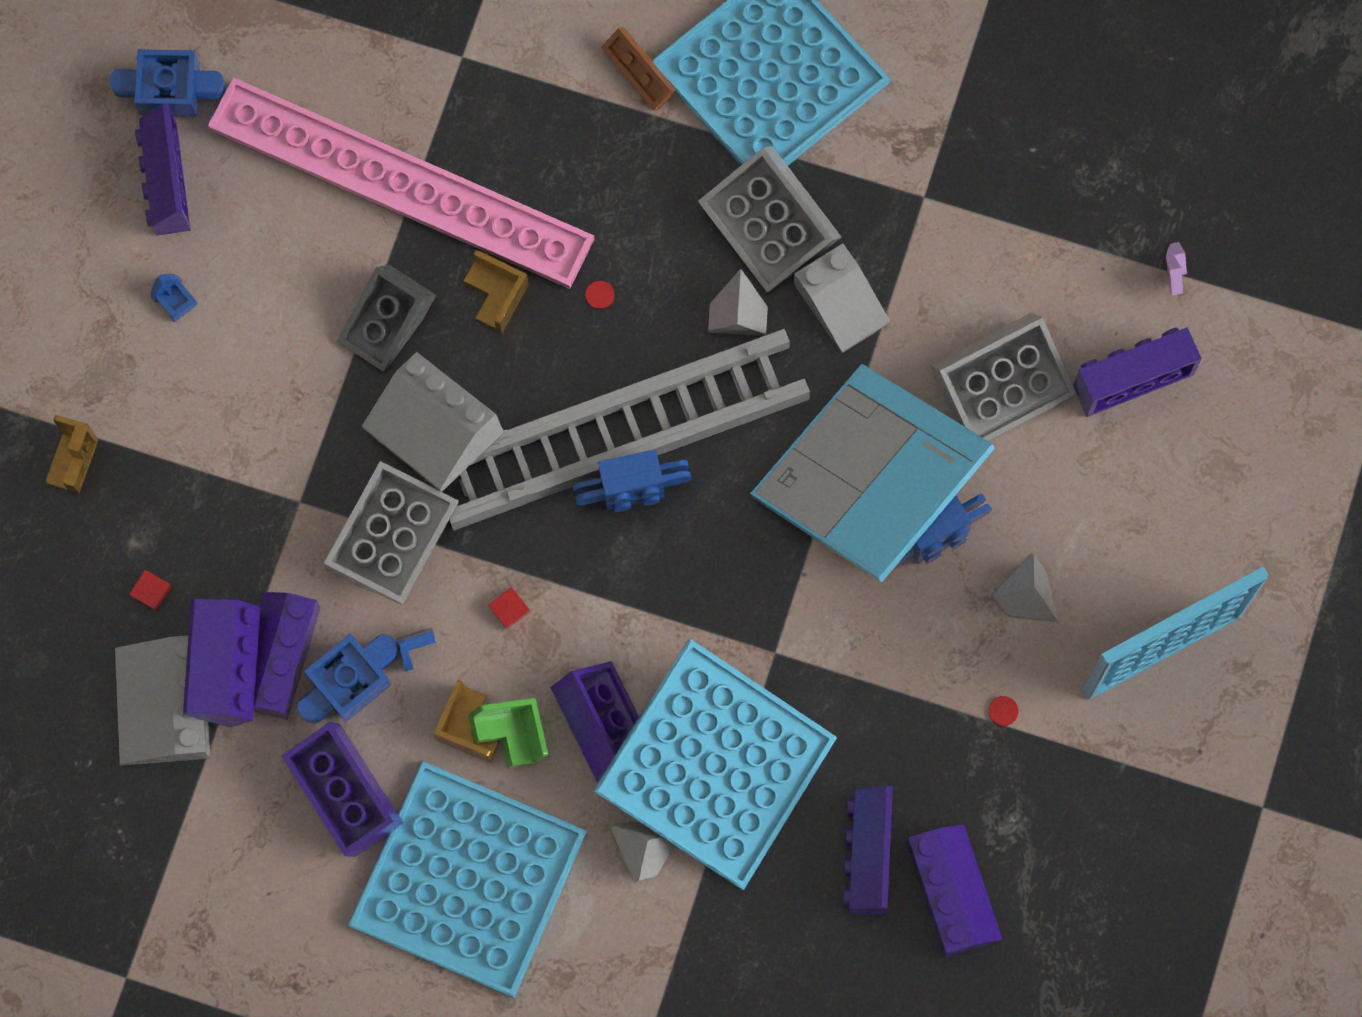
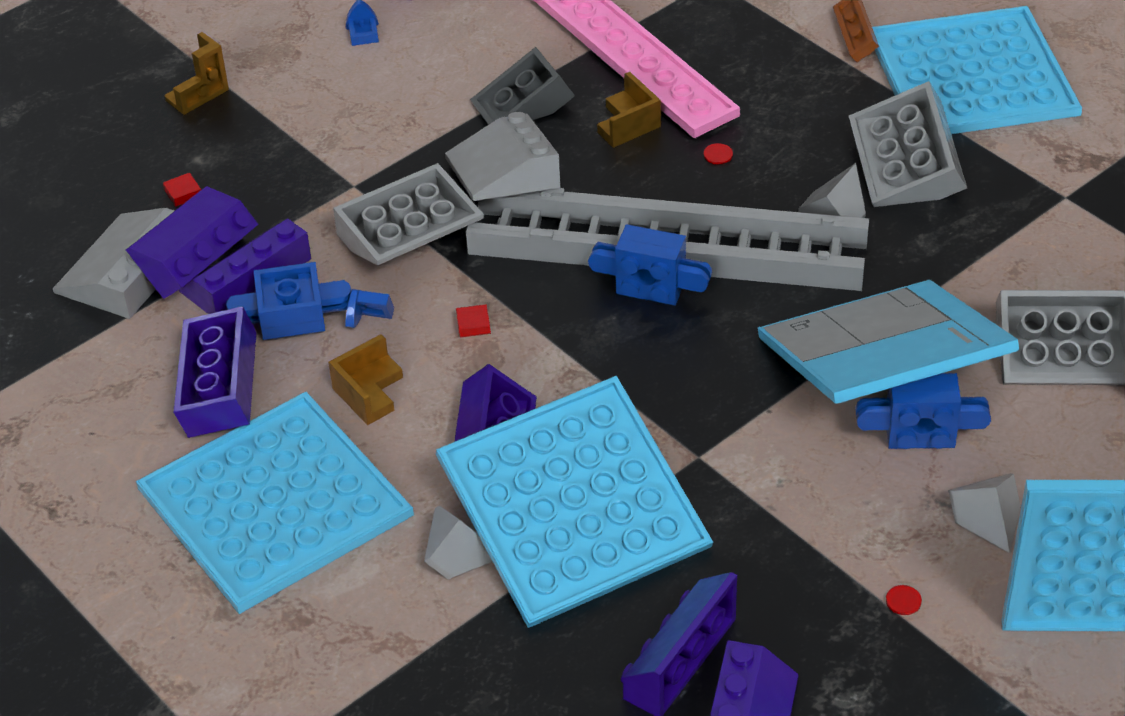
camera: 30 degrees right, 30 degrees down
(516, 725) = (404, 388): bright green panel -> none
(841, 298) = (939, 225): light grey slope -> none

